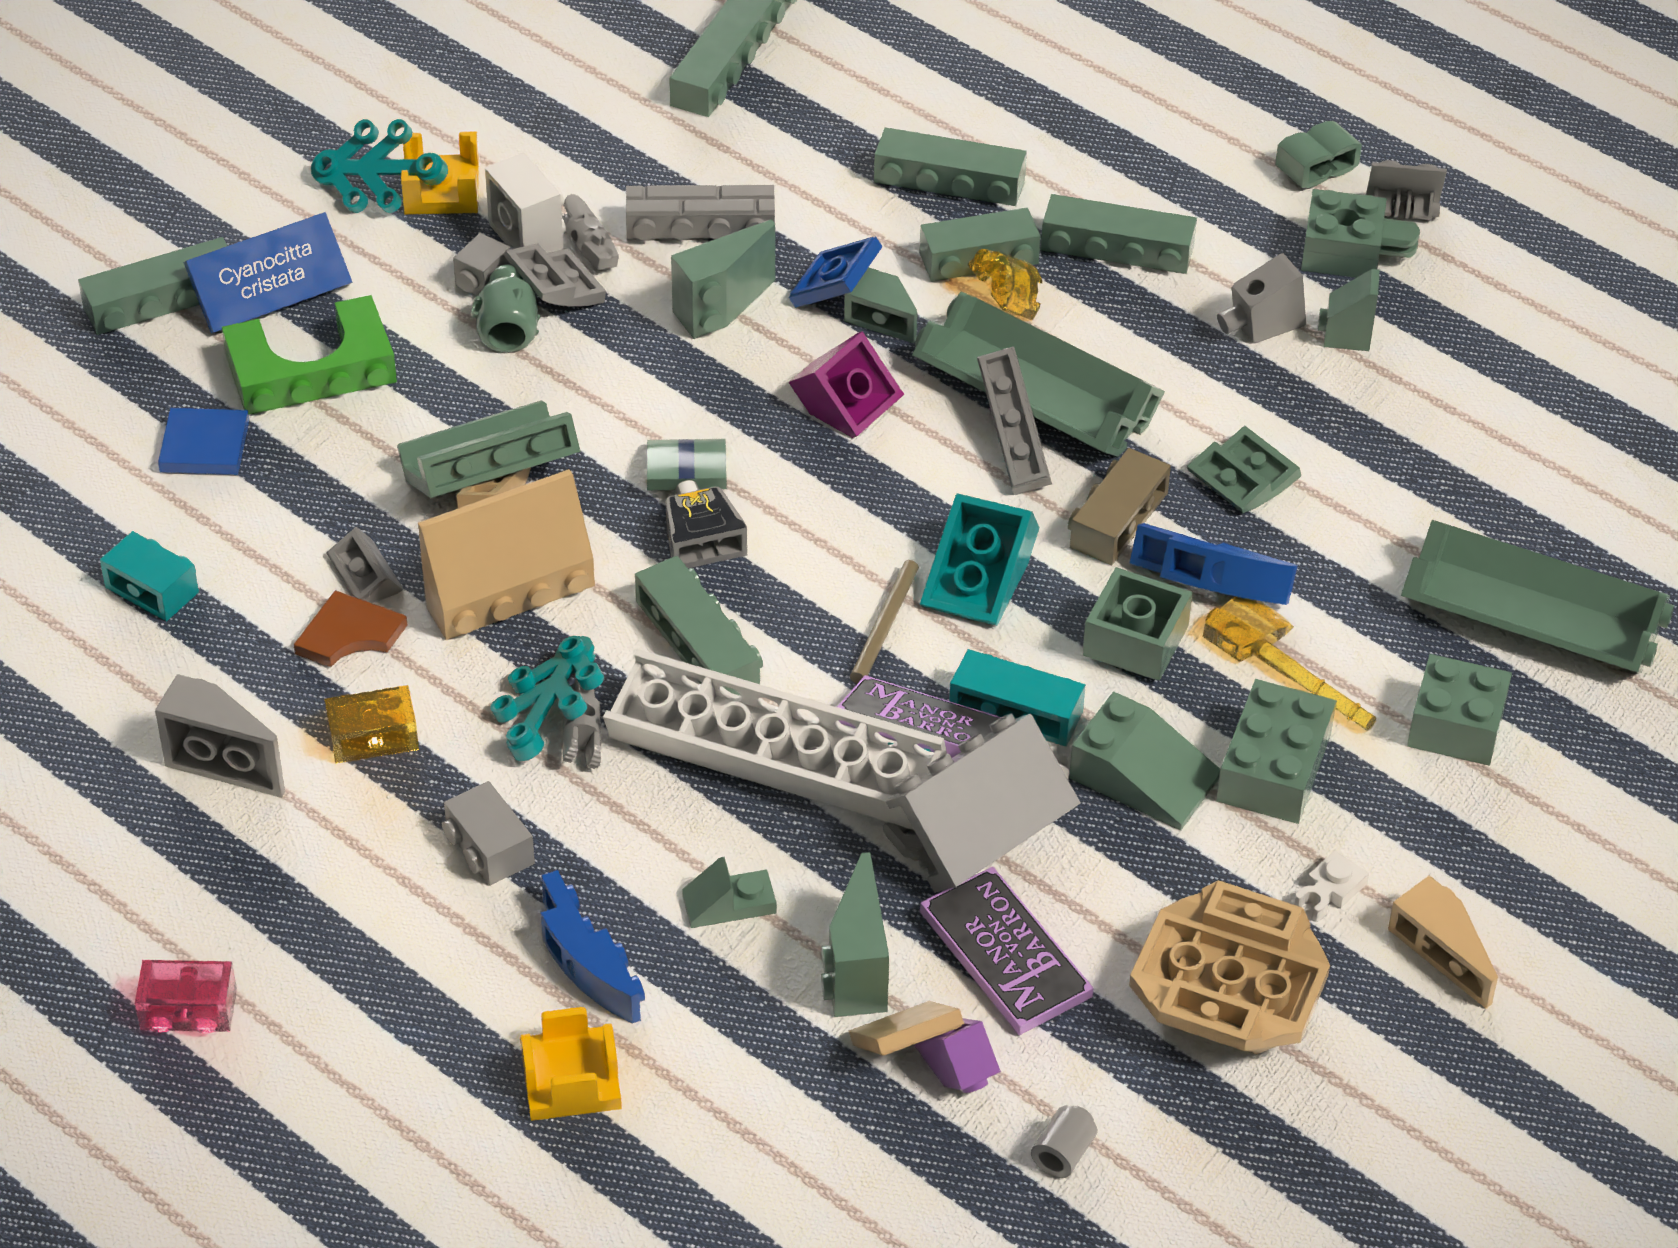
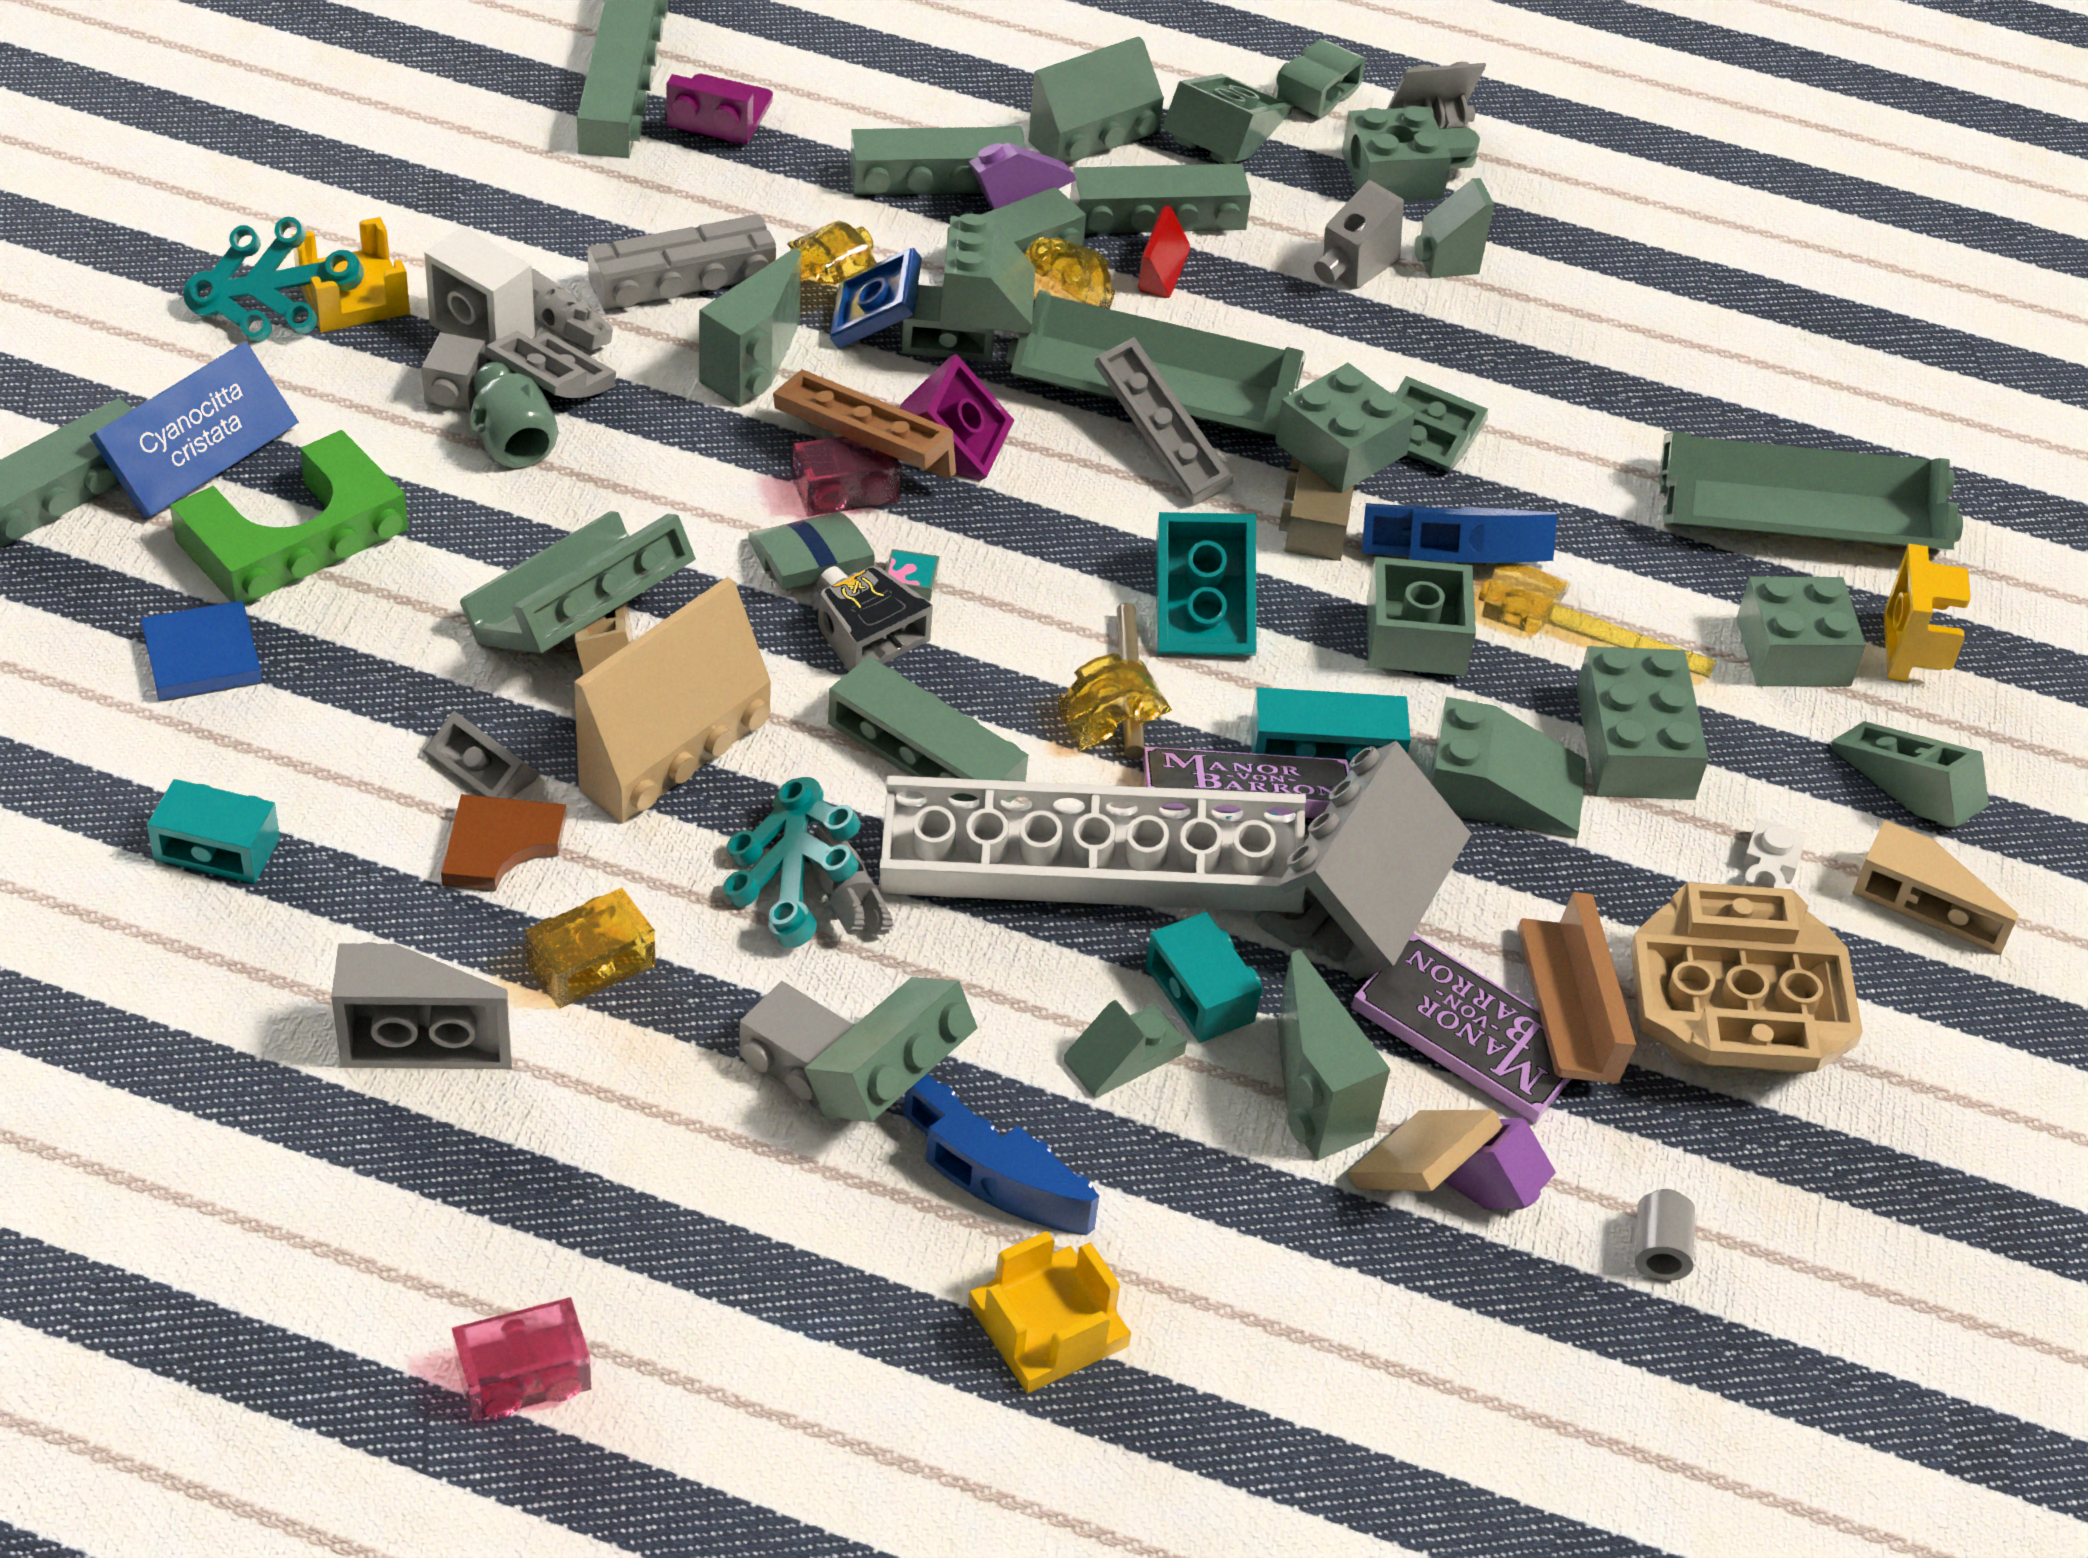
camera: 25 degrees left, 0 degrees up
(539, 848) = (891, 1049): none -> sand green brick
(742, 409) = (843, 476): none -> clear pink brick
(756, 500) = (914, 570): none -> tile
(769, 372) = (868, 422): none -> medium nougat panel
(793, 86) = (716, 106): none -> magenta bracket
(813, 858) = (1203, 976): none -> teal brick
(815, 228) = (834, 252): none -> clear yellow cylinder
(855, 626) = (1106, 695): none -> clear yellow cylinder
(918, 273) = (986, 278): none -> sand green slope
(1002, 189) = (1013, 173): none -> medium lavender slope
(1094, 945) = (1578, 993): none -> medium nougat panel
(1097, 282) = (1163, 256): none -> red slope
(1102, 141) = (1095, 102): none -> sand green slope
(1147, 456) = (1344, 427): none -> sand green brick
(1215, 171) = (1223, 116): none -> sand green slope
(1494, 846) = (1919, 772): none -> sand green slope
(1552, 736) = (1907, 615): none -> yellow panel

